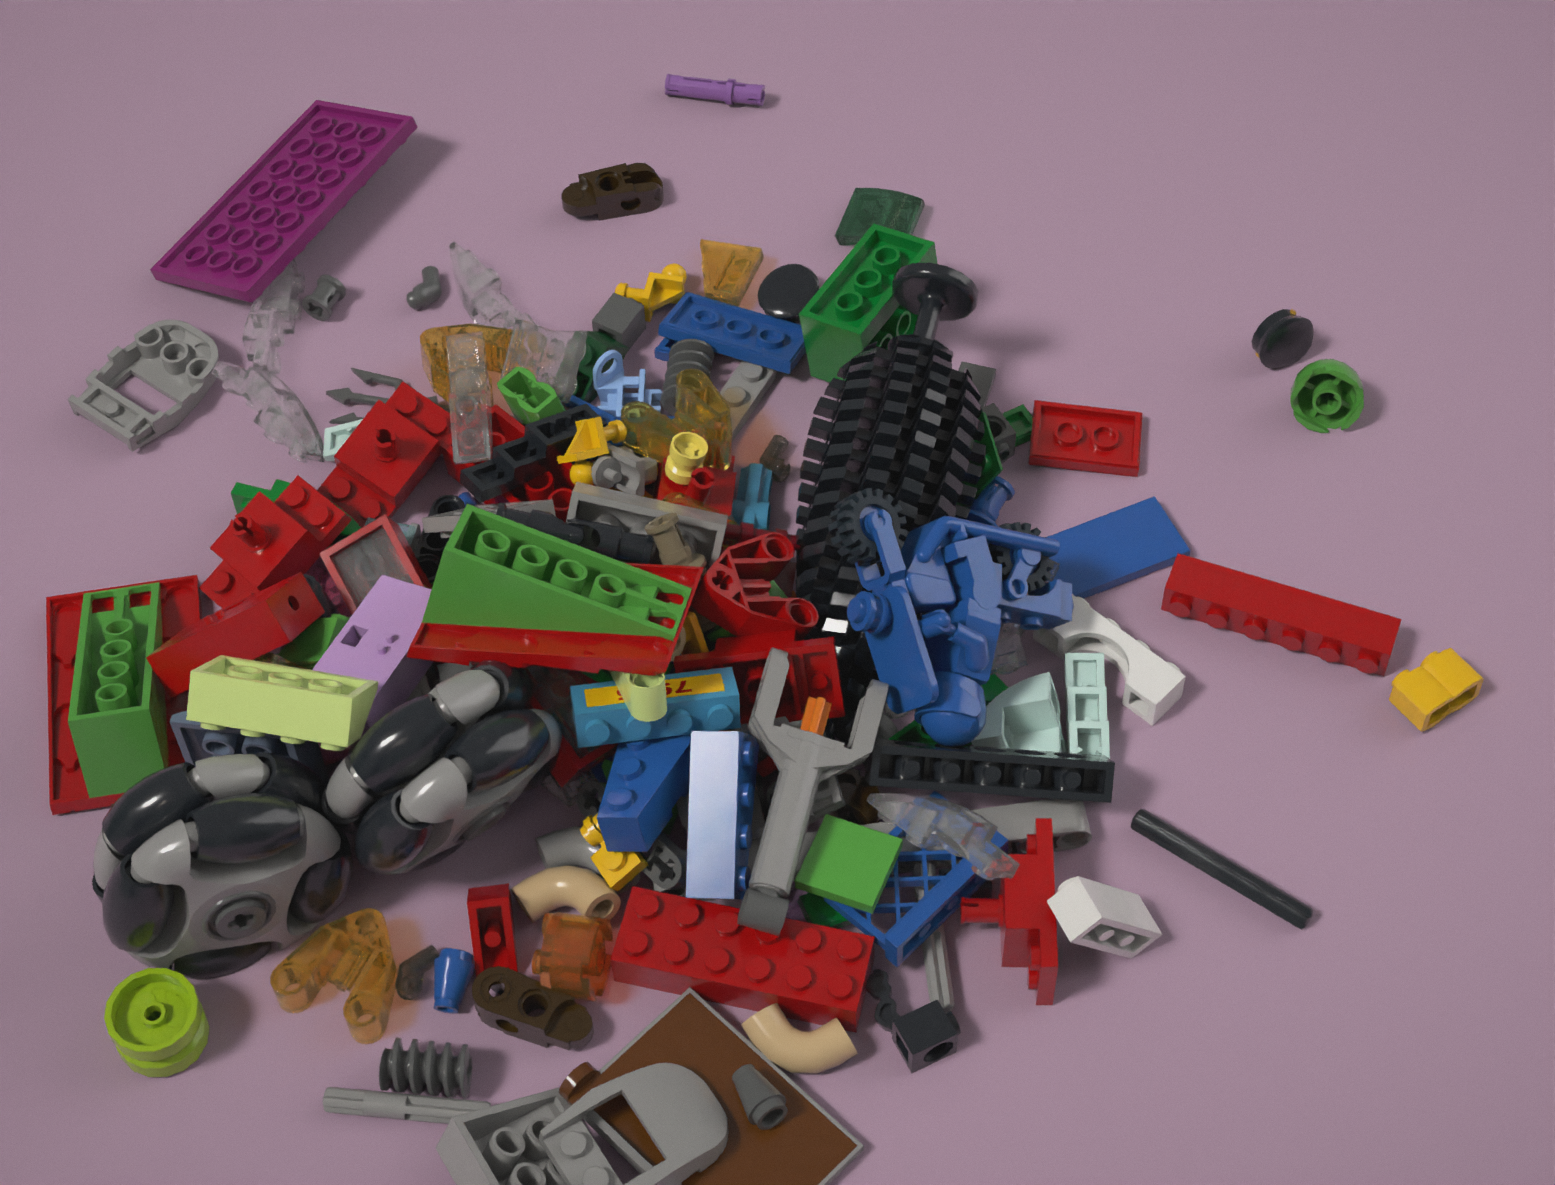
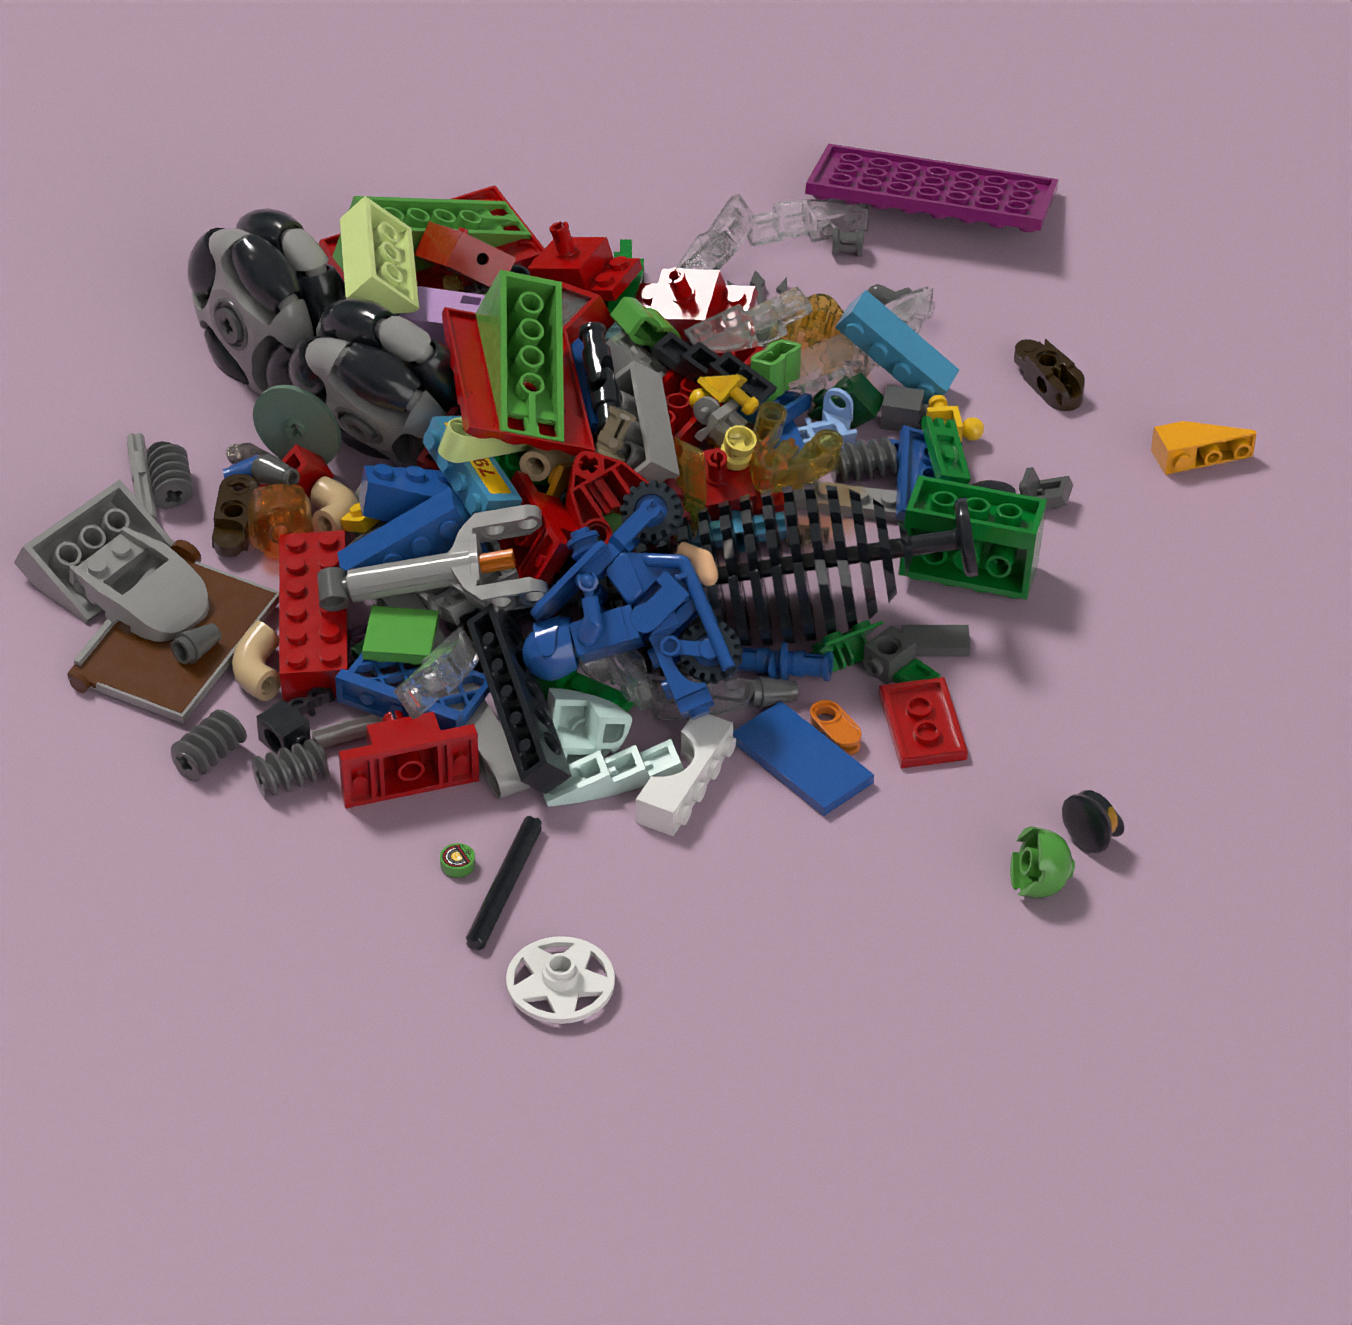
camera: 70 degrees right, 10 degrees down
(157, 1022) = (160, 335): lime wheel -> none
(165, 356) = (746, 174): light grey slope -> none
(345, 956) = (229, 418): clear yellow connector -> none
(427, 495) = (641, 324): none -> bright green brick
(430, 894) = (283, 408): none -> sand green piece
(496, 939) = (271, 470): none -> dark grey cone
(552, 290) = (896, 346): none -> dark azure brick
(703, 88) = (1209, 410): medium lavender pin -> none
(715, 301) = (945, 450): none -> green hinge
(728, 270) = (997, 462): clear yellow wing -> none
(770, 113) = (1197, 445): none -> light orange slope
(792, 243) = (1054, 489): none -> dark grey bracket
(881, 207) = (1108, 541): clear green slope -> none
(919, 515) = (702, 562): none -> light nougat arm
(926, 1127) = (207, 744): none -> dark grey piece
(994, 1041) = (290, 766): none -> dark grey piece
(1074, 506) = (840, 730): none -> orange piece
(1103, 917) = (406, 791): white brick -> none
(1174, 906) = (457, 860): none -> tile
(1280, 614) = (776, 876): red brick -> none
(1381, 849) = (560, 979): none -> white wheel
(1435, 688) = (739, 990): yellow brick -> none

